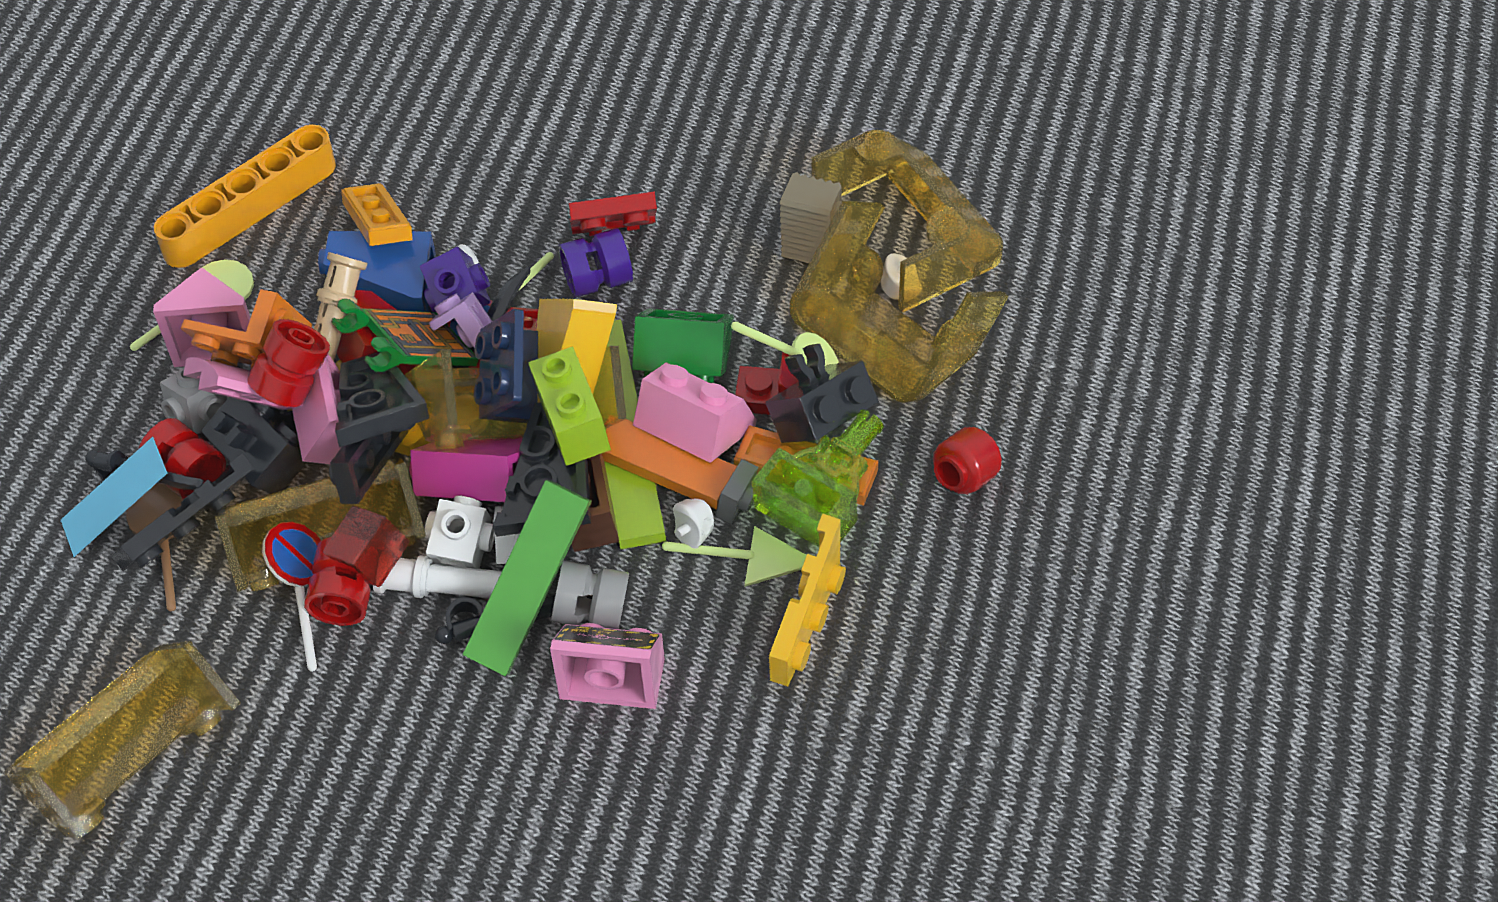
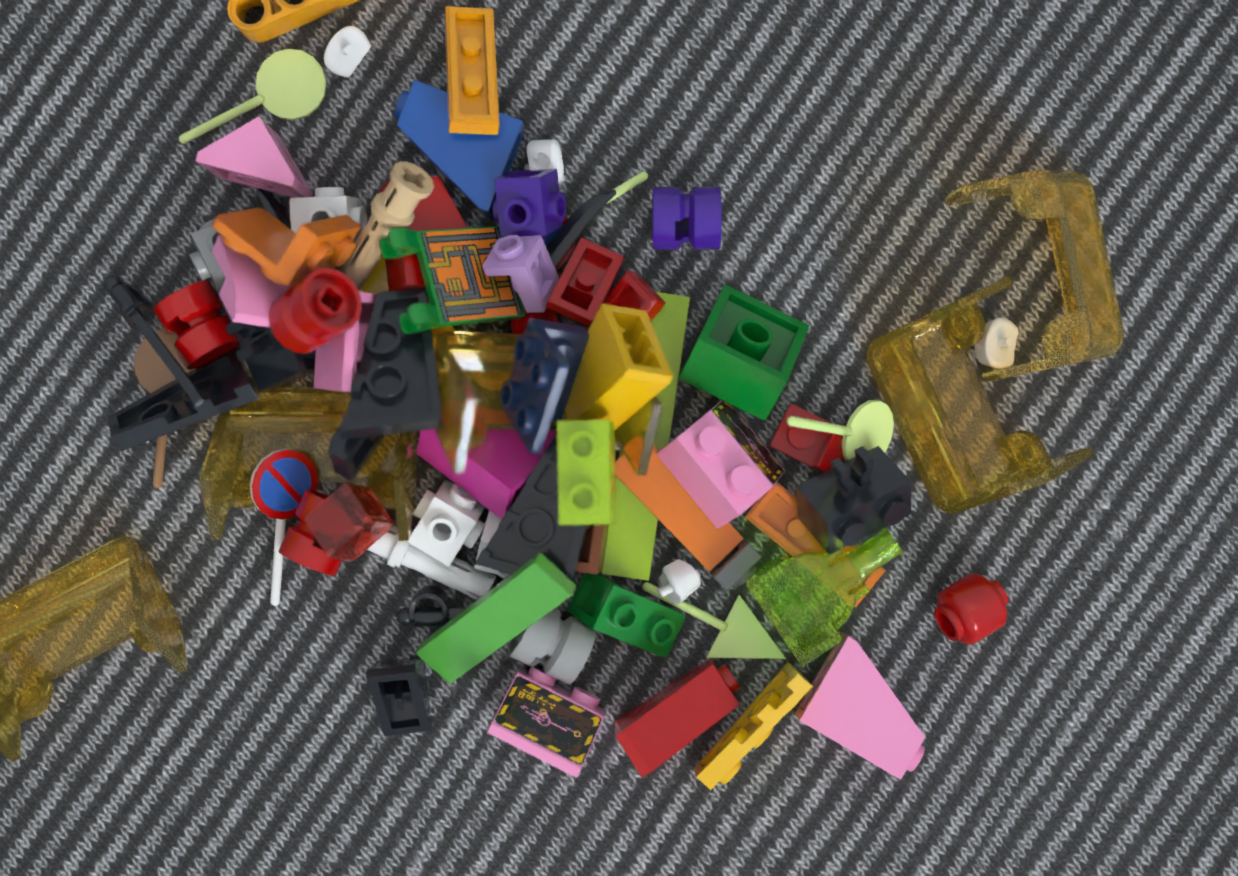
camera: 20 degrees right, 35 degrees up
(113, 496) = (121, 352): medium azure sticker -> none
(263, 244) = (346, 50): none -> white piece
(458, 690) = (400, 695): none -> black slope
(613, 213) = (738, 166): red plate -> none
(658, 557) = (625, 614): none -> green bracket
(727, 621) = (676, 715): none -> red slope
(806, 214) = (933, 258): dark tan brick -> none
(906, 569) = (861, 711): none -> bright pink slope

